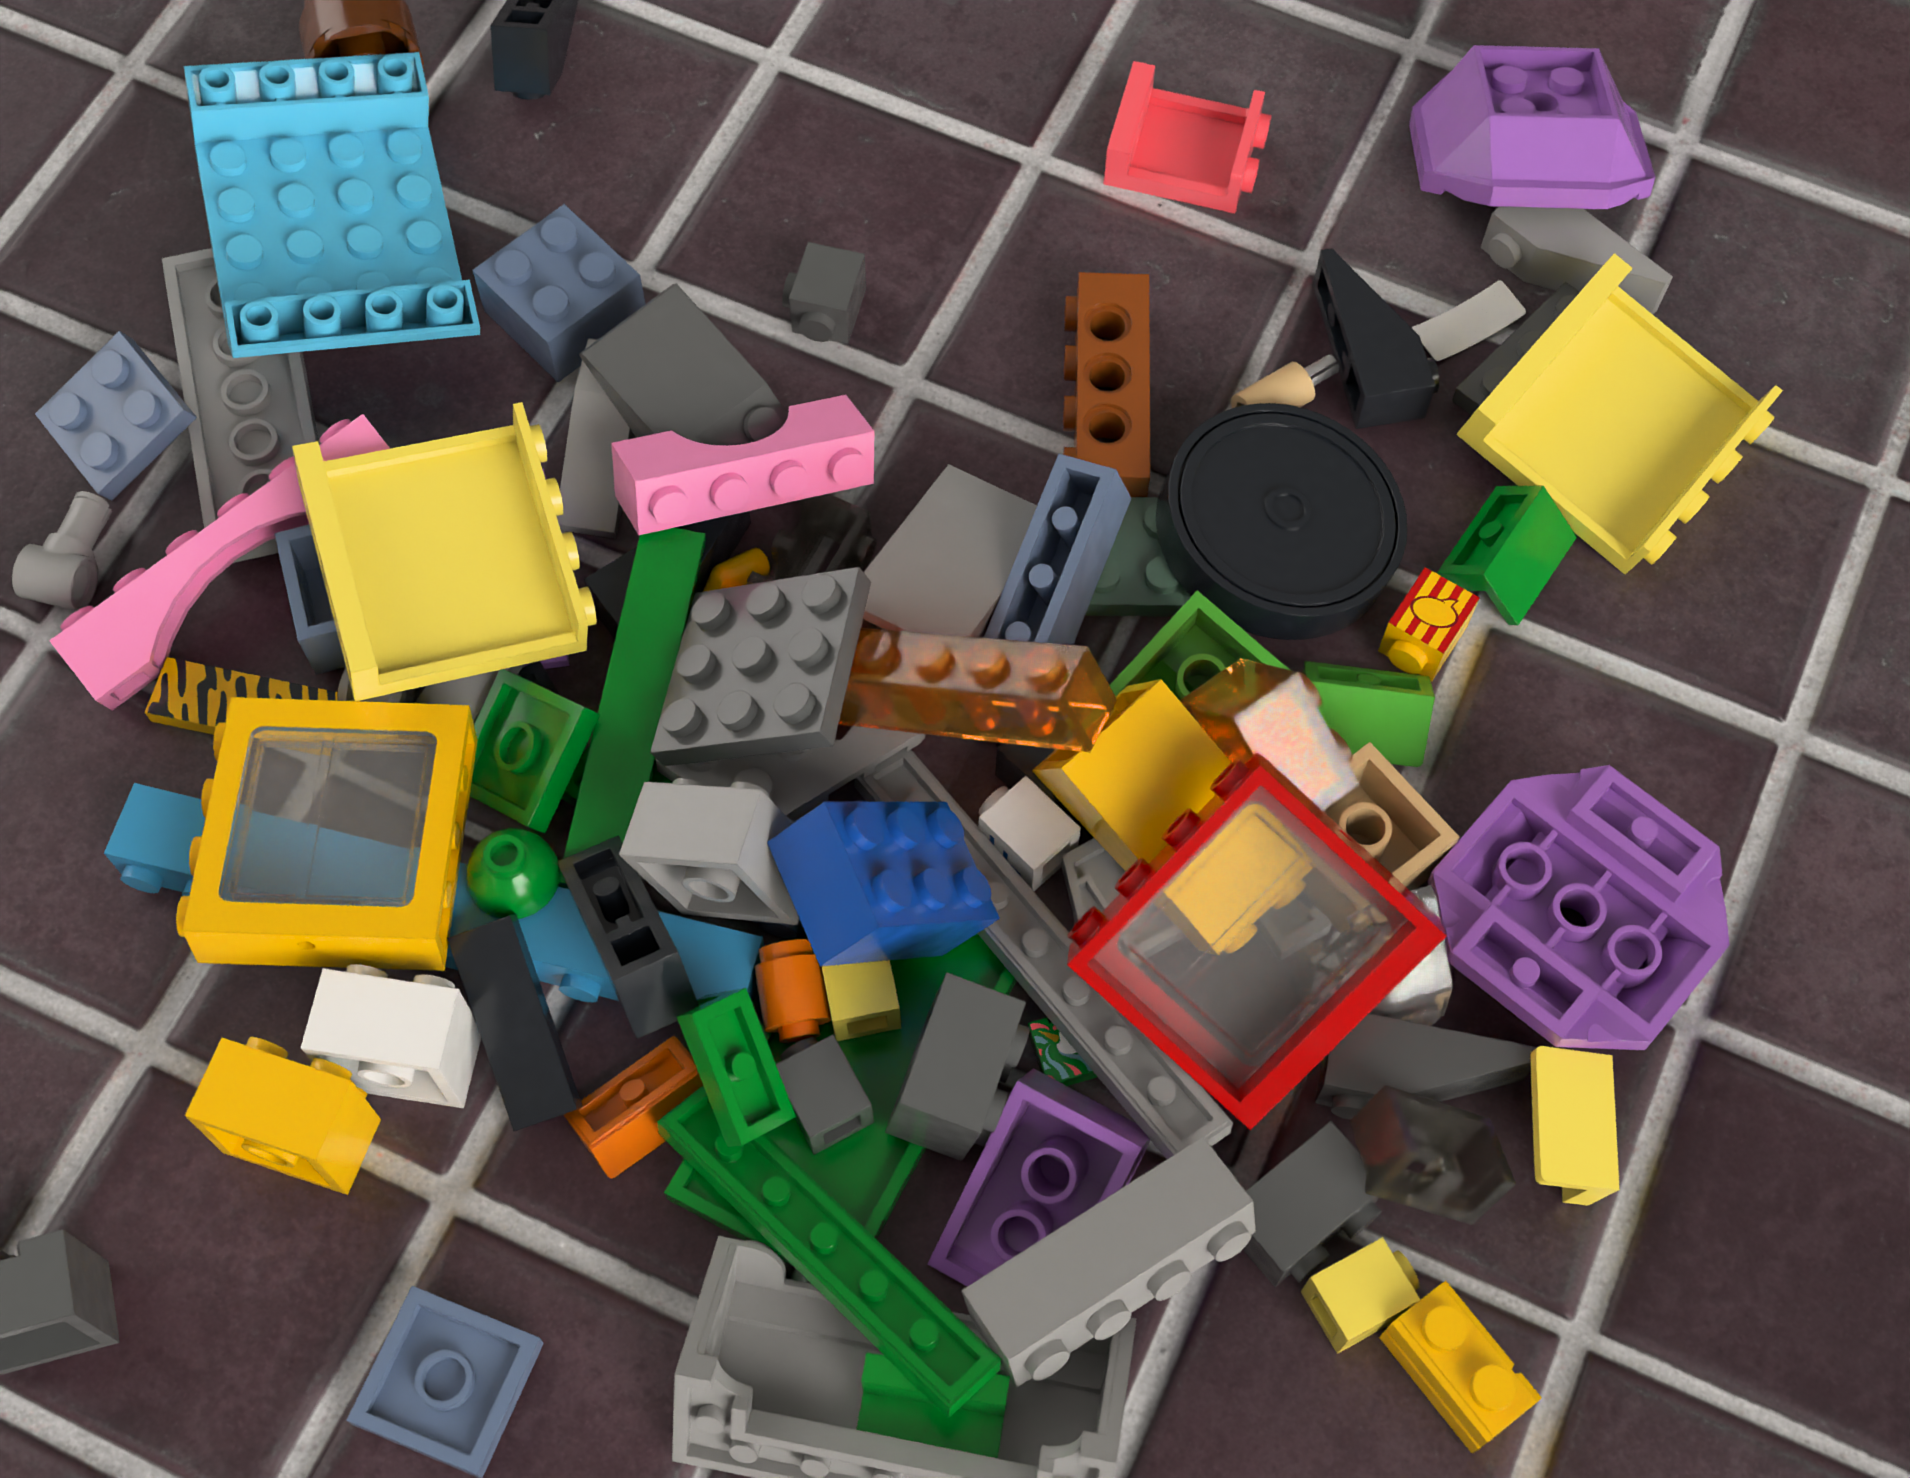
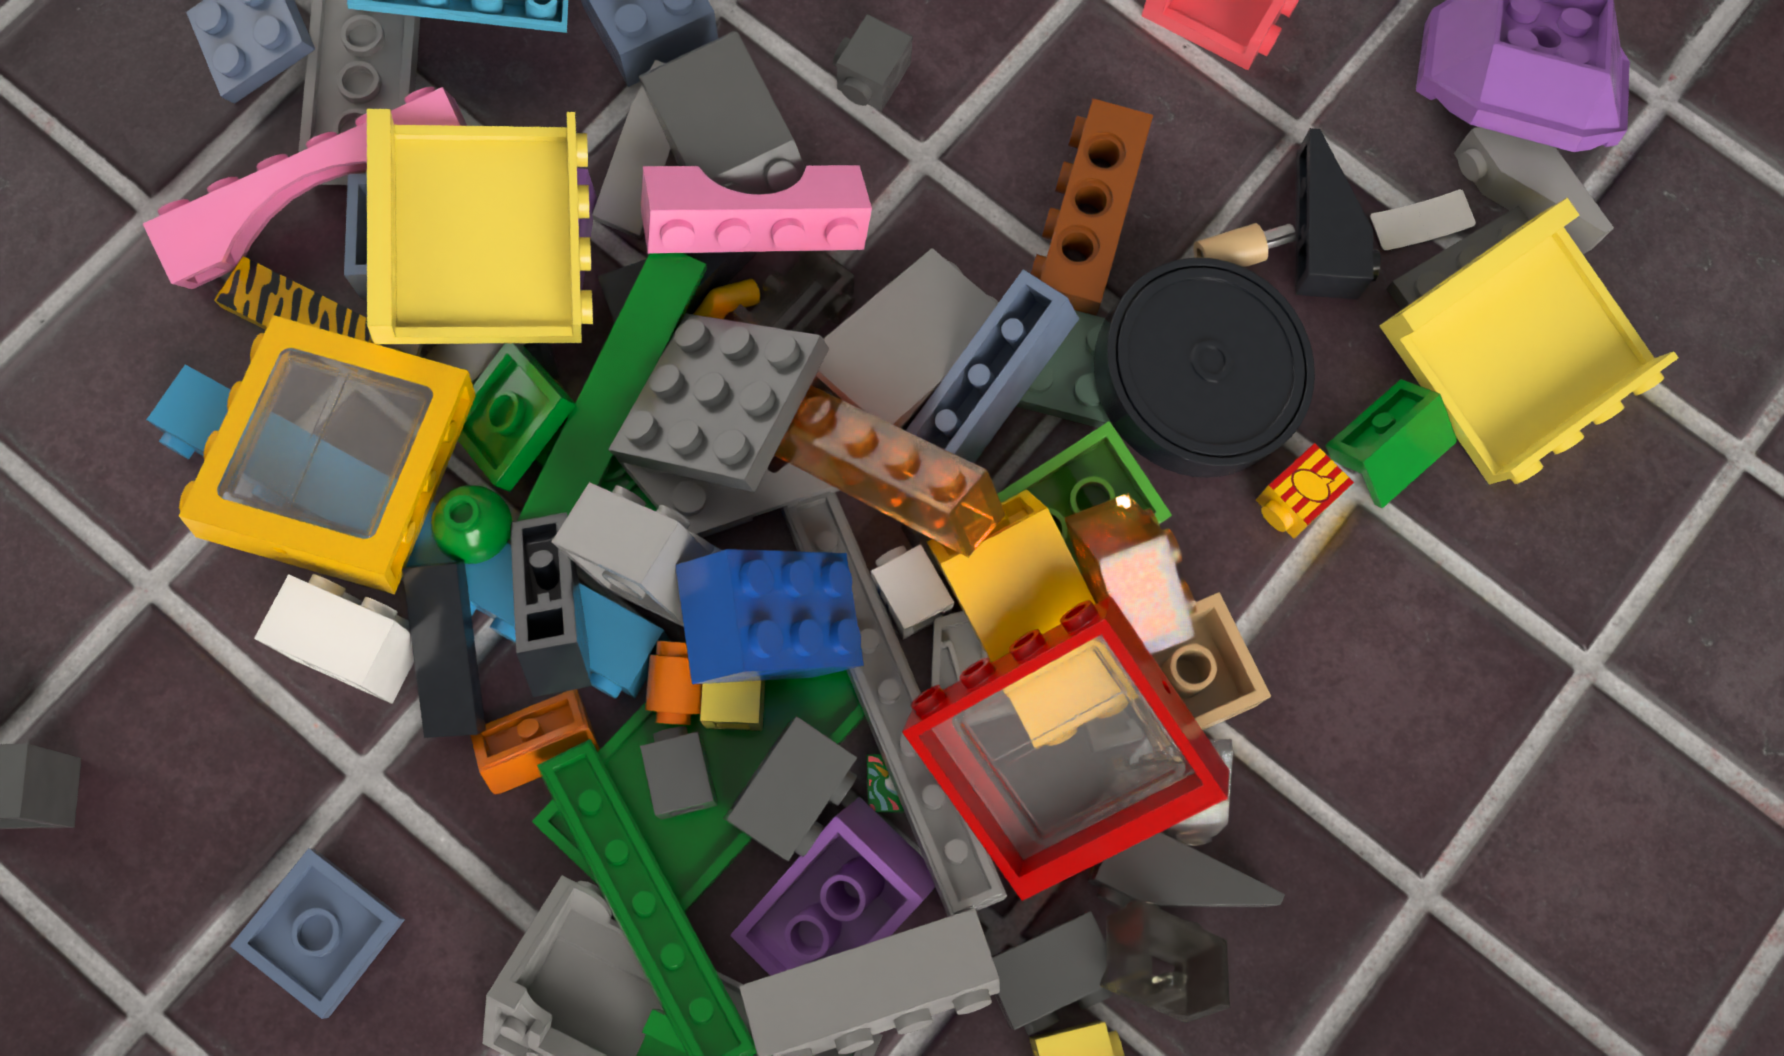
camera: 10 degrees right, 10 degrees up
(64, 567) = (177, 155): light grey pin -> none
(284, 1113) = (238, 681): yellow brick -> none
(736, 1066) = (607, 741): green panel -> none
(1376, 708) = (1230, 554): bright green panel -> none
(1574, 1123) = (1296, 964): light yellow panel -> none
(1618, 861) = (1414, 771): medium lavender piece -> none

